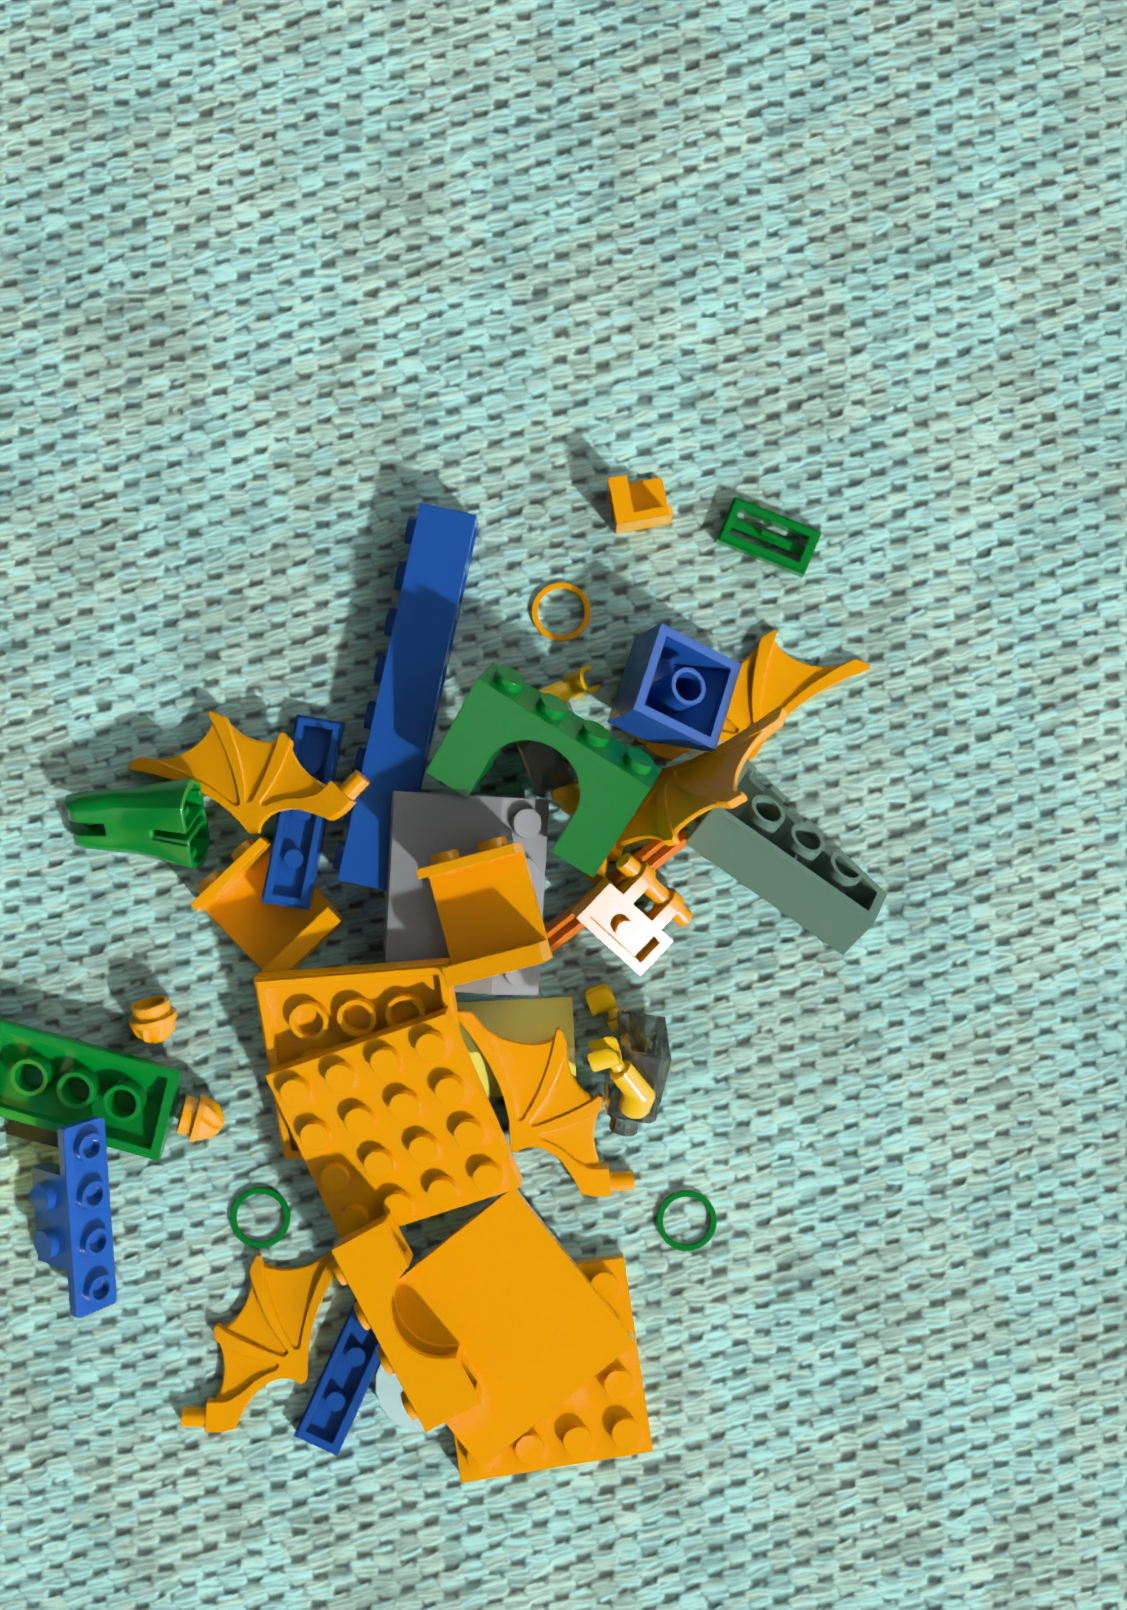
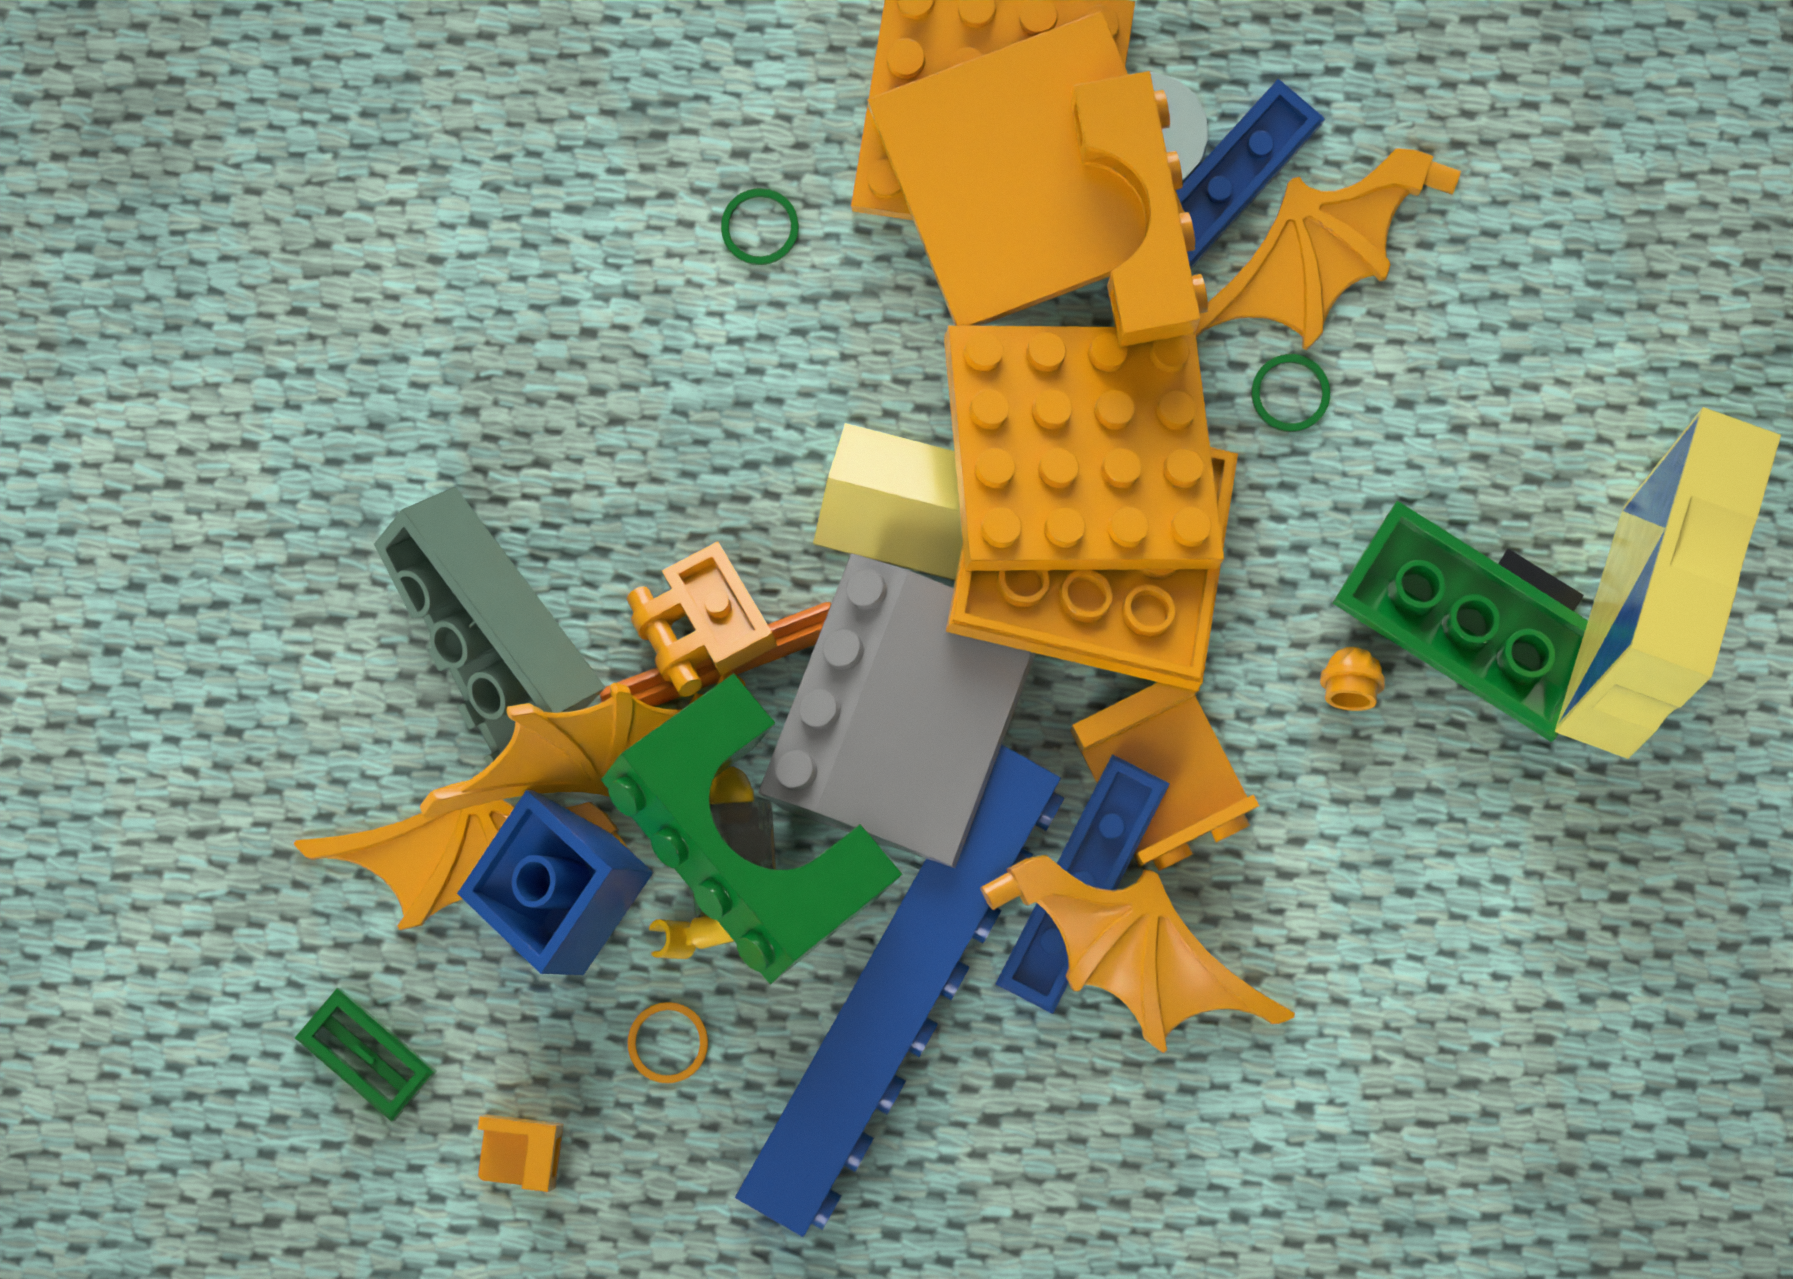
camera: 155 degrees left, 5 degrees down
(75, 1215) = (1519, 465): blue bracket -> none
(147, 820) = (1284, 933): green piece -> none
(199, 1118) = (1329, 537): light orange plate -> none
(487, 911) = (879, 670): light orange panel -> none
(548, 1105) = (884, 417): light orange animal -> none
(634, 1062) = (759, 432): torso -> none

